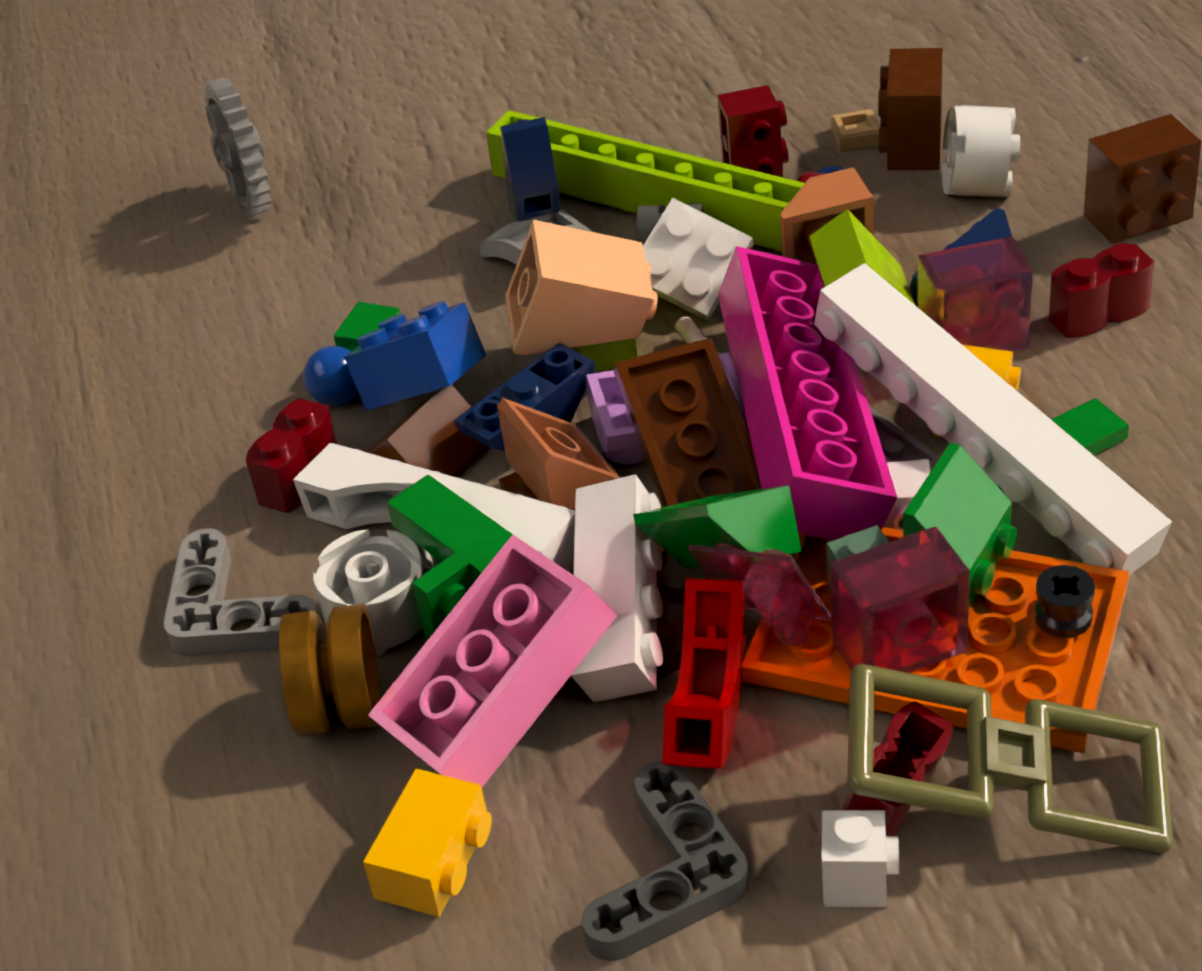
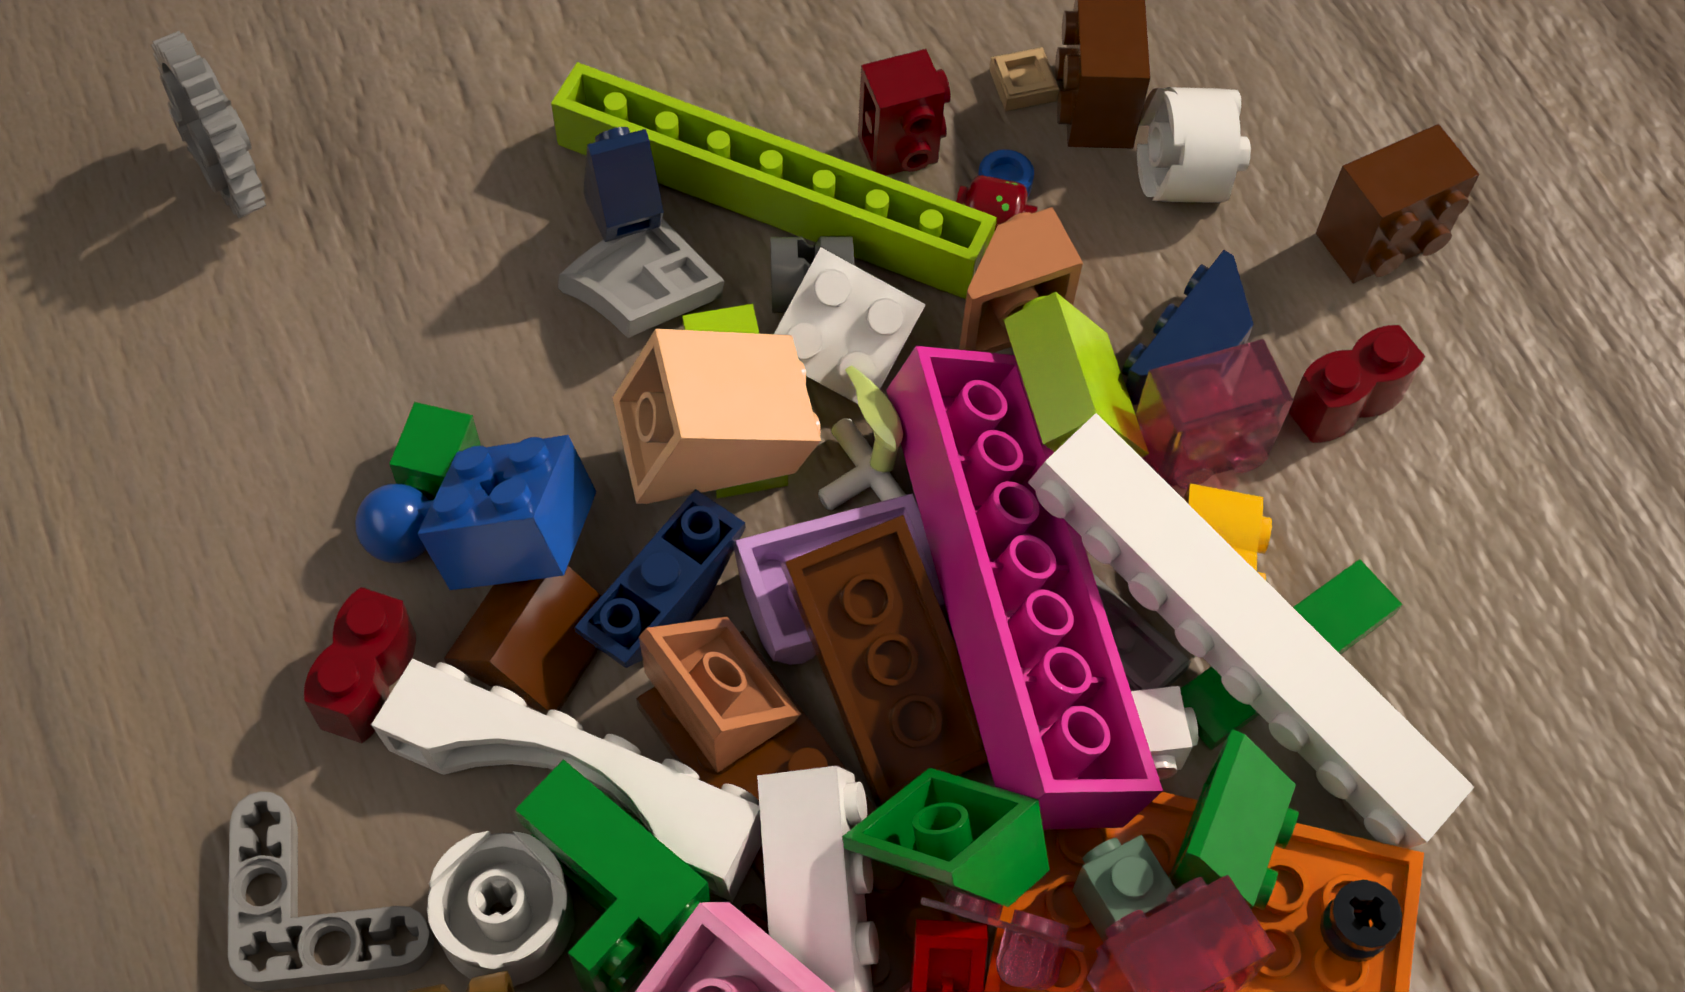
camera: 15 degrees left, 20 degrees up
(711, 307) = (882, 419): none -> yellowish green bar

